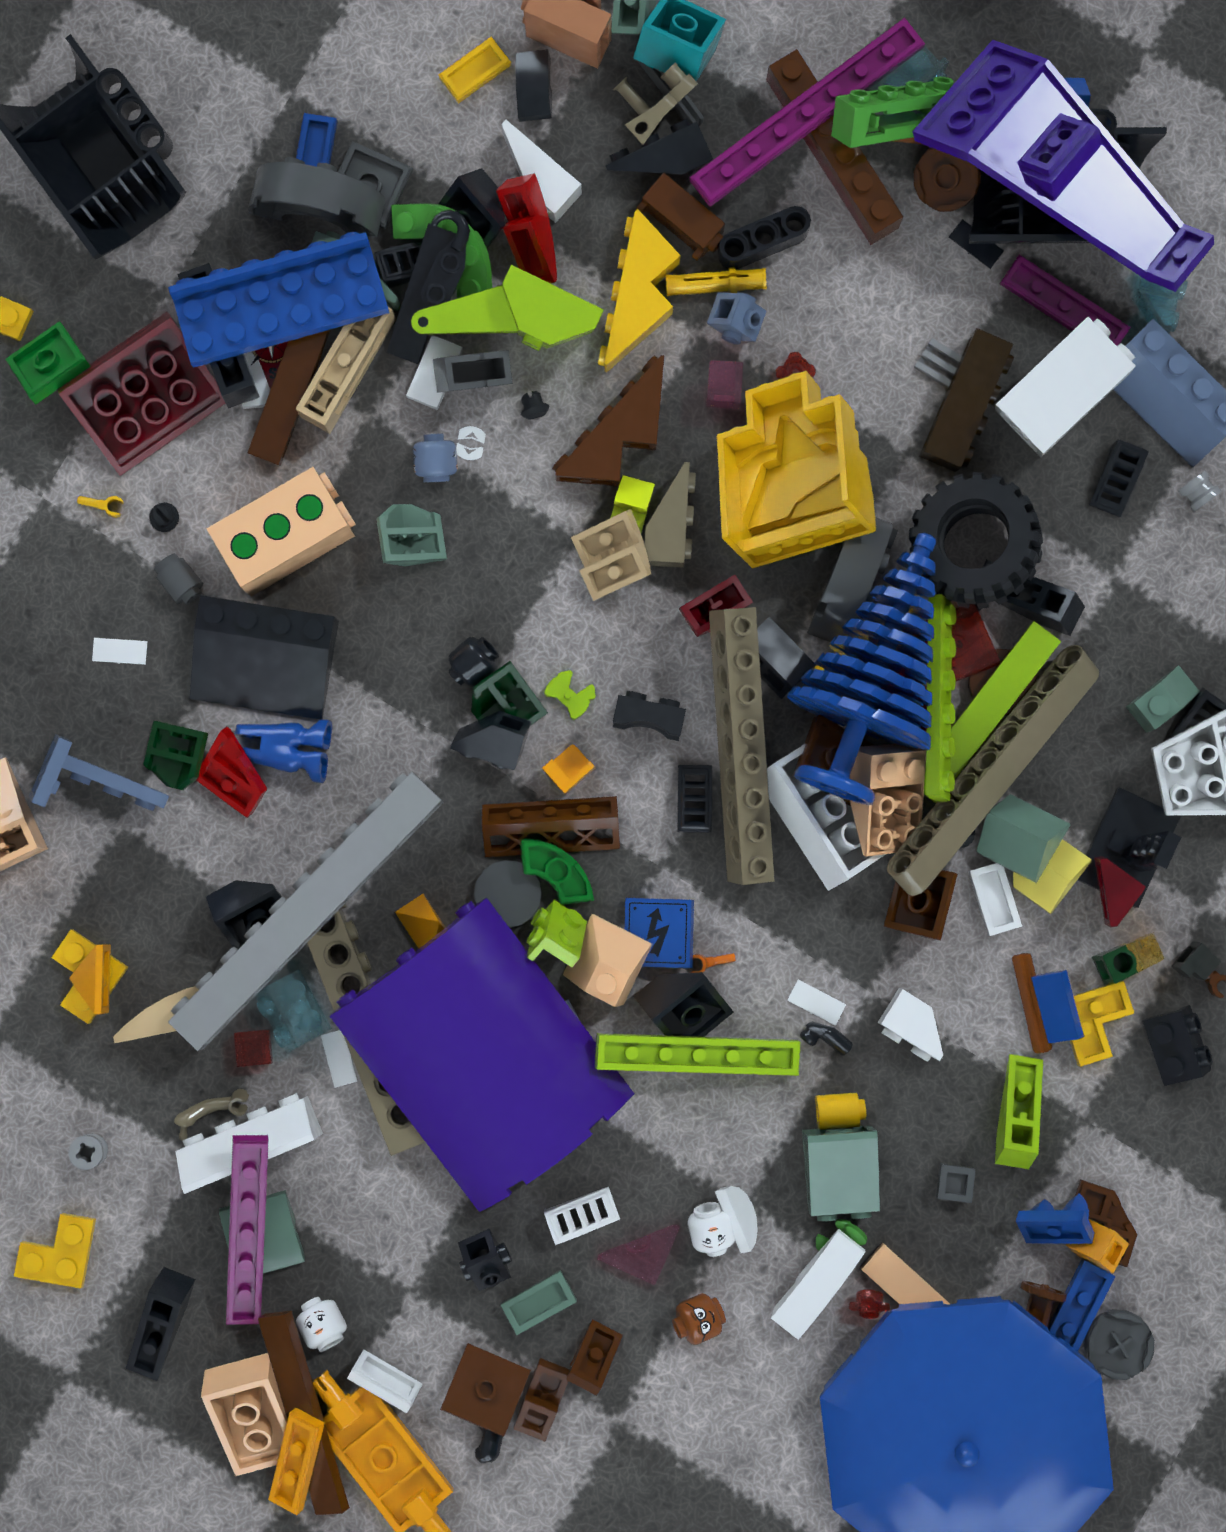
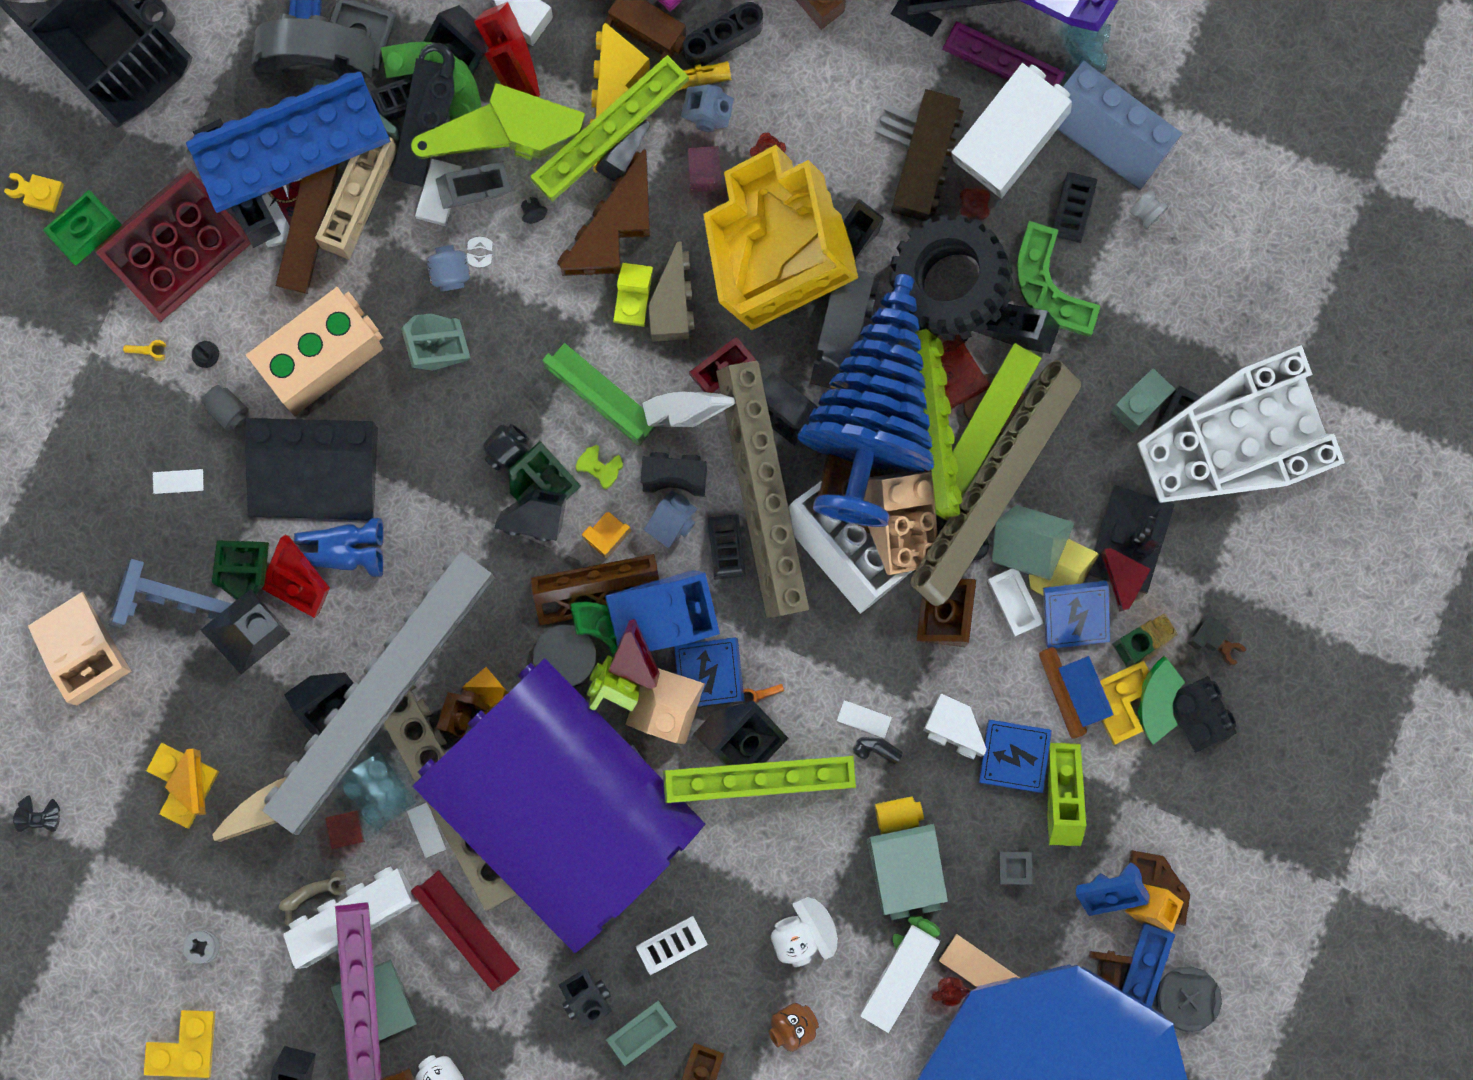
camera: 10 degrees left, 5 degrees down
(172, 824) = (245, 631): none -> black slope
(367, 1172) = (466, 931): none -> dark red fence
(386, 940) = (458, 711): none -> reddish brown bracket
(581, 616) = (599, 393): none -> bright green fence
(581, 911) = (634, 659): none -> slope
(612, 554) = (621, 333): tan slope -> none
(618, 865) = (666, 610): none -> blue slope
(628, 328) = (609, 128): none -> lime plate
(634, 361) = (618, 159): none -> slope
(640, 763) = (671, 519): none -> sand blue brick
(644, 1255) = (733, 976): clear pink tile -> none
(670, 646) = (684, 408): none -> white slope
(886, 470) = (862, 226): none -> black slope
(972, 1064) = (1015, 756): none -> blue tile
(1018, 452) = (981, 197): none -> clear red plate
(1059, 923) = (1077, 614): none -> tile
(1068, 563) = (1039, 289): none -> bright green plate
(1132, 1025) = (1157, 700): none -> tile

